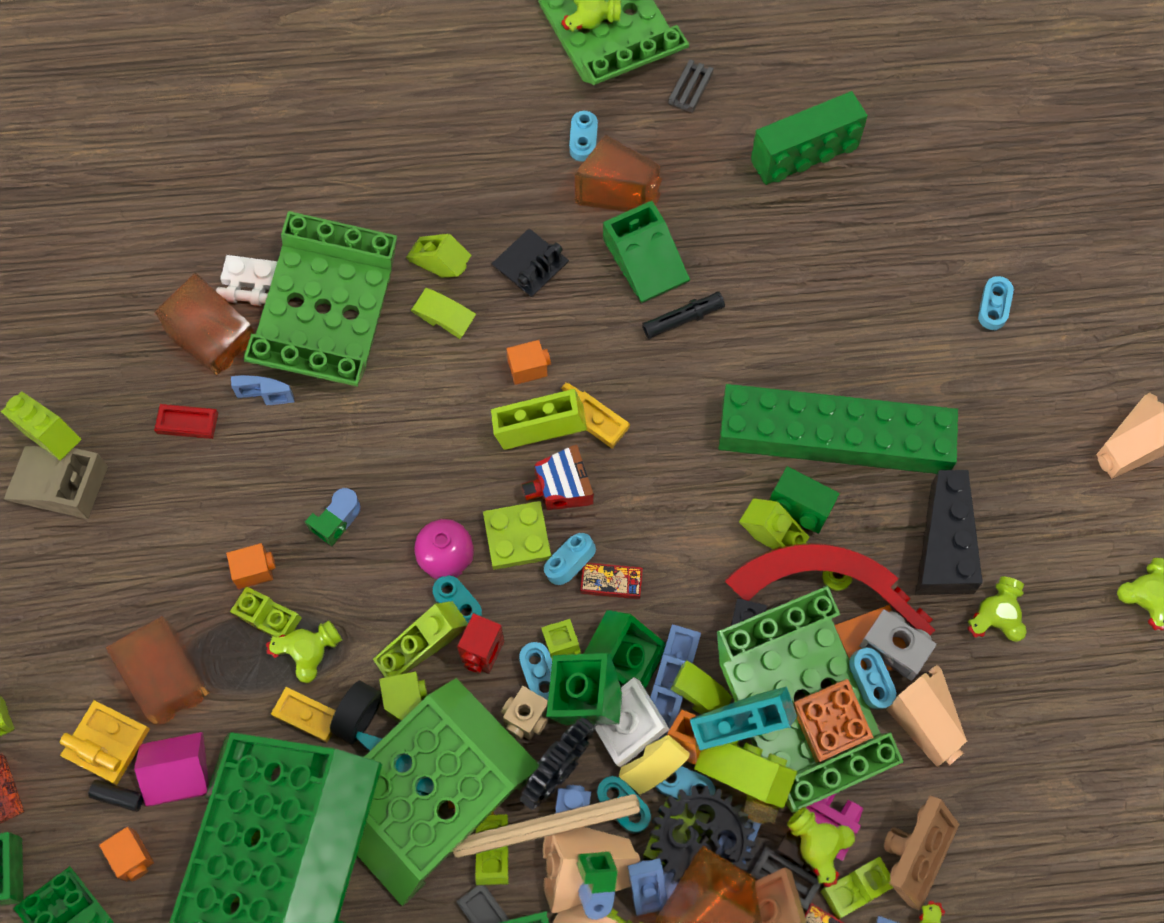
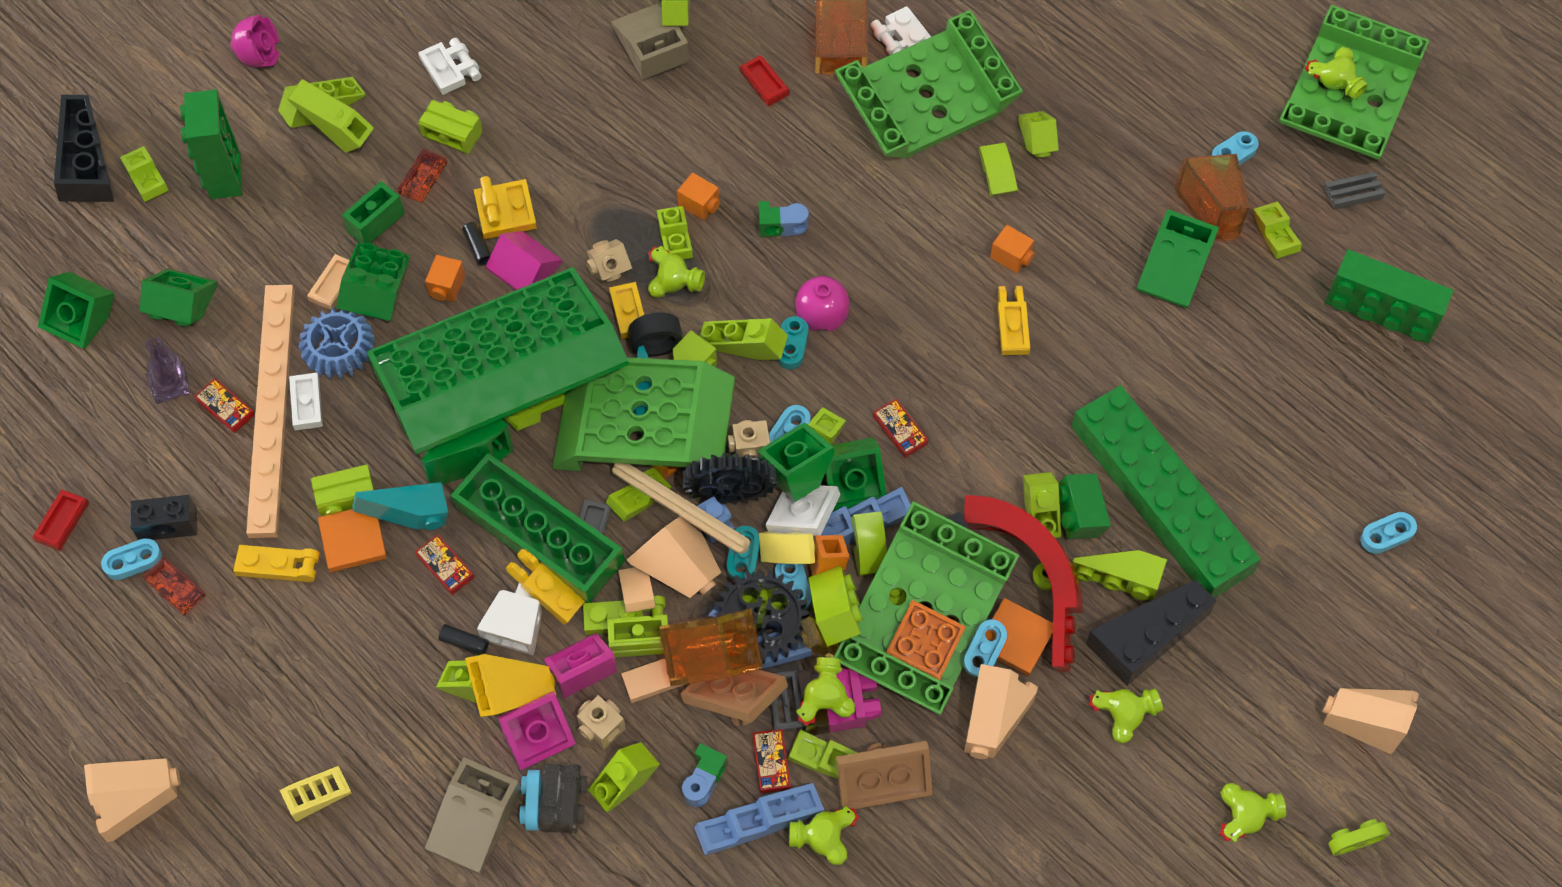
camera: 50 degrees right, 5 degrees down
(158, 671) = (578, 197): clear orange slope -> none
(244, 693) = (608, 260): none -> tan brick
(271, 390) = (832, 107): medium blue slope -> none
(480, 644) = (771, 374): red brick -> none
(516, 535) = (876, 343): lime plate -> none
(531, 262) = (1094, 194): black hinge -> none
(538, 419) = (972, 285): lime brick -> none
(560, 481) = (942, 338): torso -> none
(569, 559) = (890, 387): medium azure plate -> none
(599, 883) = (674, 559): green leg -> none
(647, 886) = (697, 600): medium blue plate -> none
(678, 165) = (1276, 231): none -> lime slope
(693, 311) = (1164, 327): black pin -> none
(744, 719) = (868, 571): teal slope -> none
(889, 508) = (1124, 571): none -> lime slope
(906, 660) = (1033, 630): light grey brick -> none

